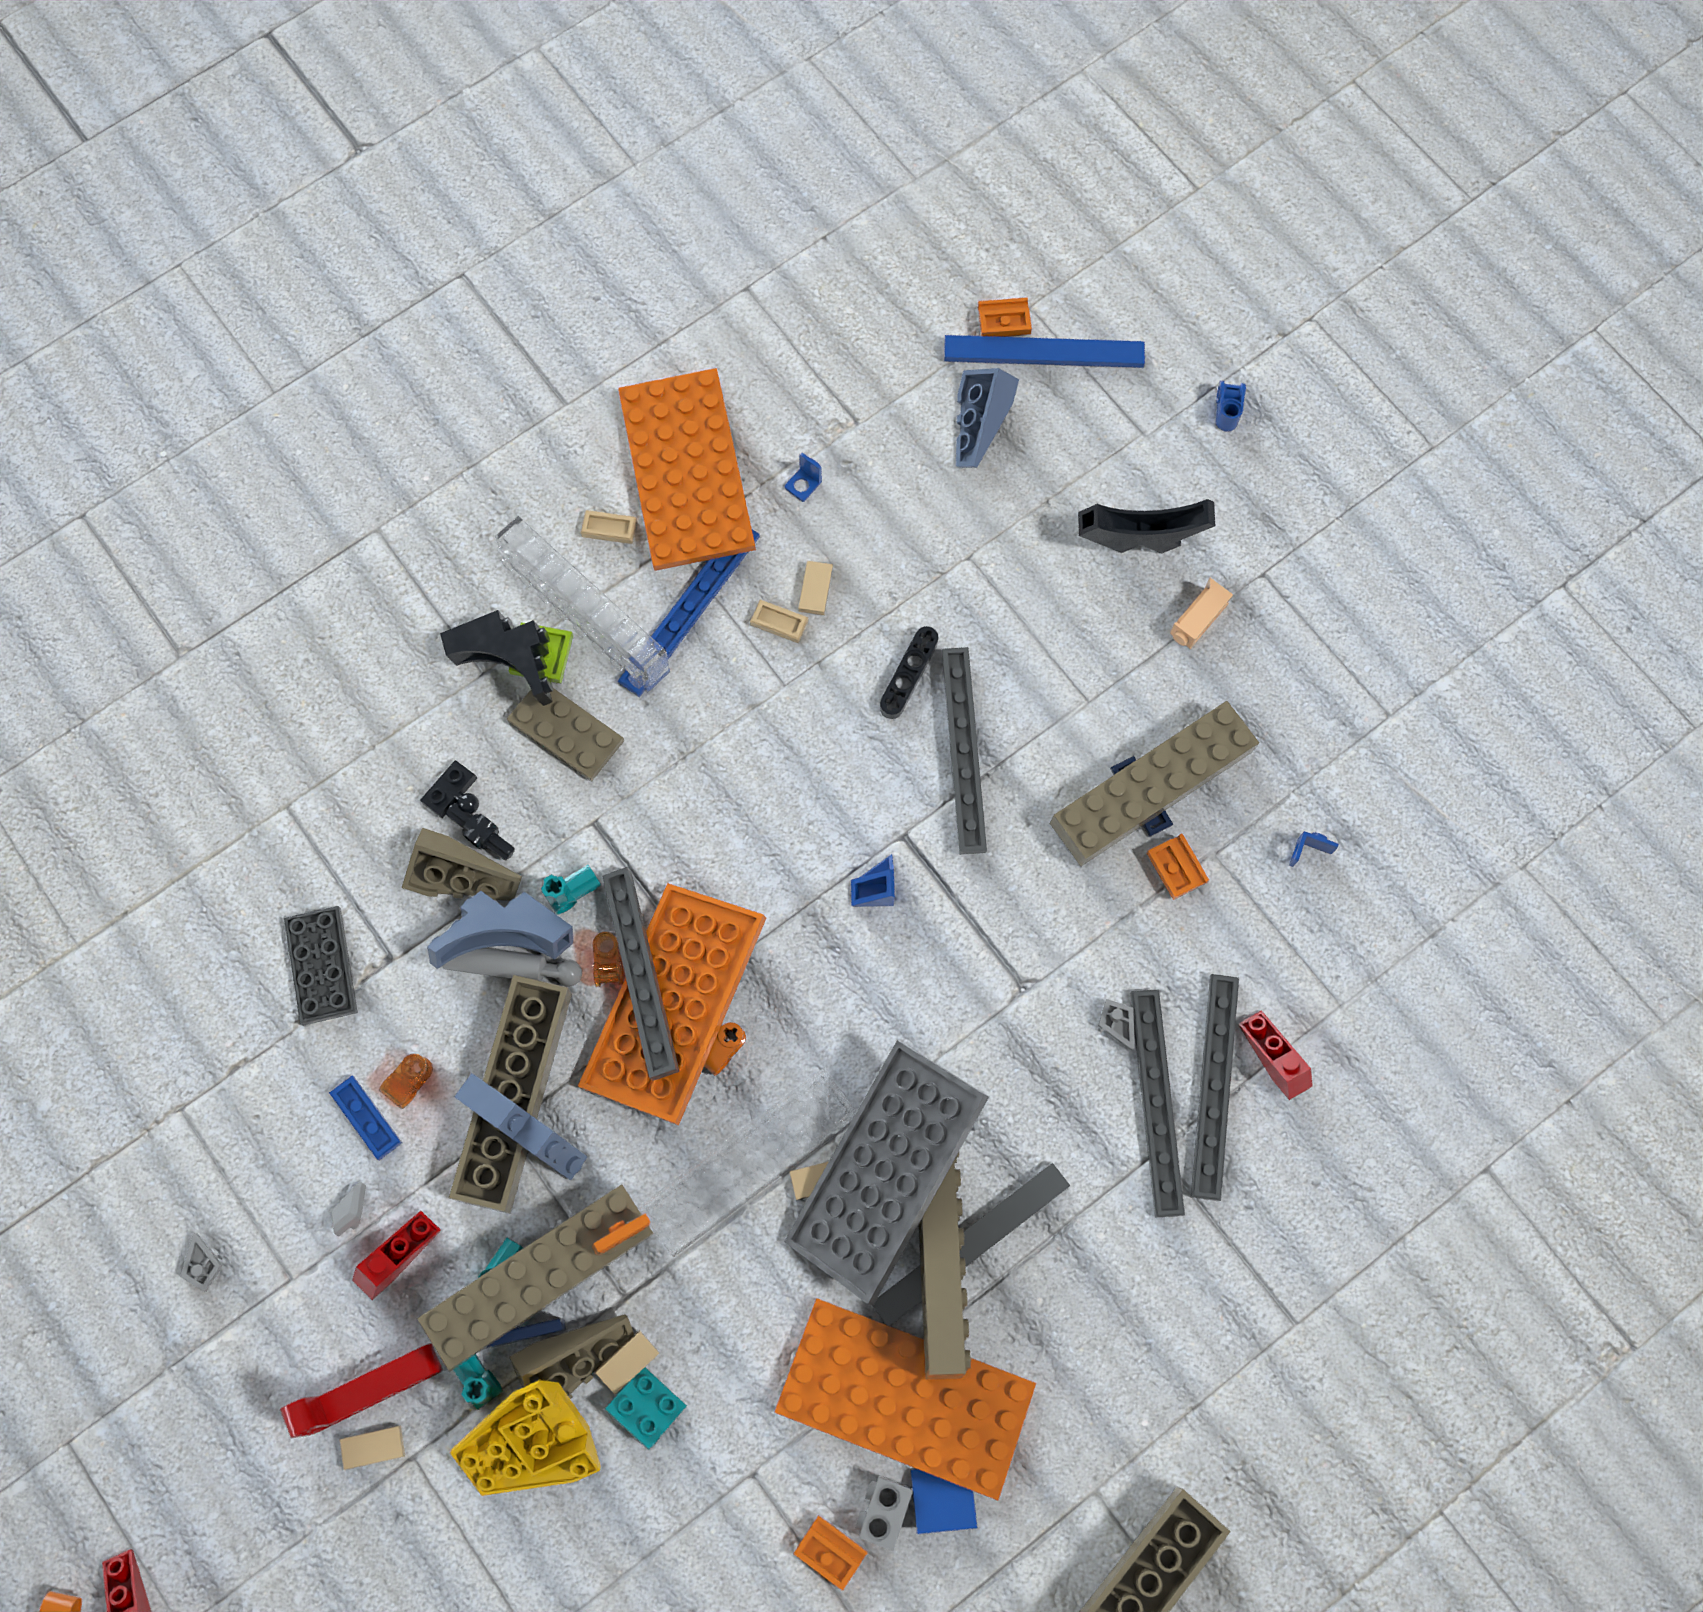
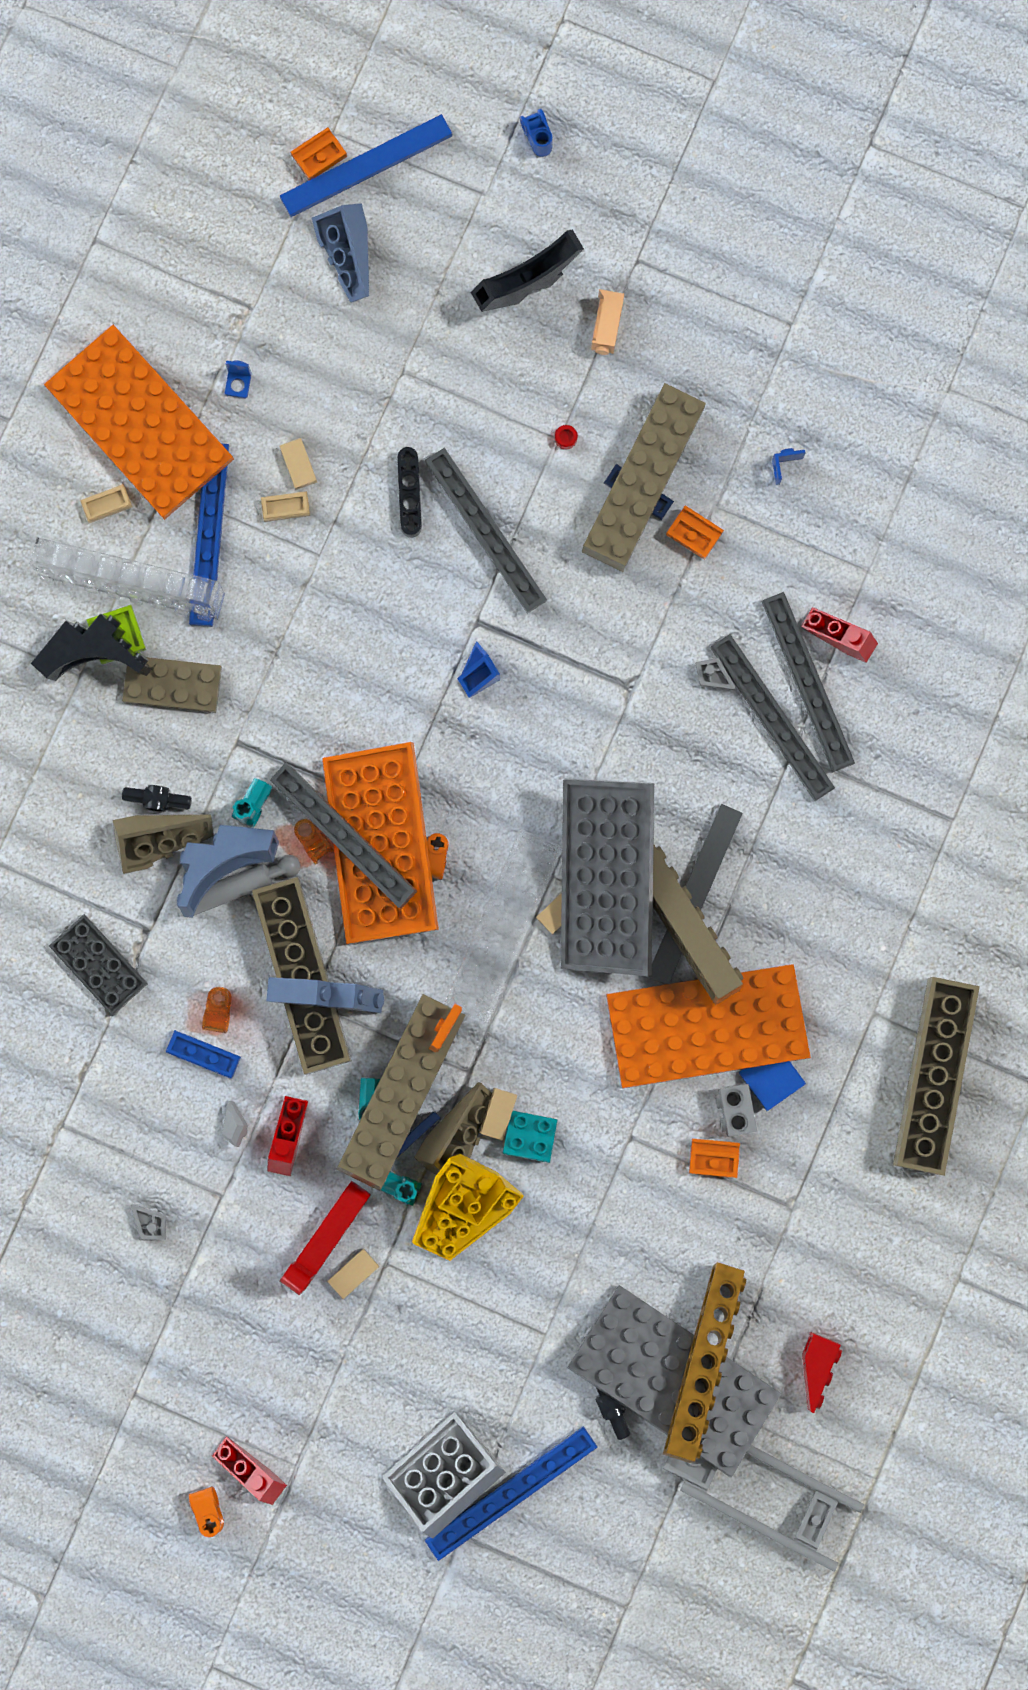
camera: 30 degrees left, 10 degrees up
(451, 790) = (113, 779): black plate -> none
(1097, 703) = (566, 437): none -> red tile

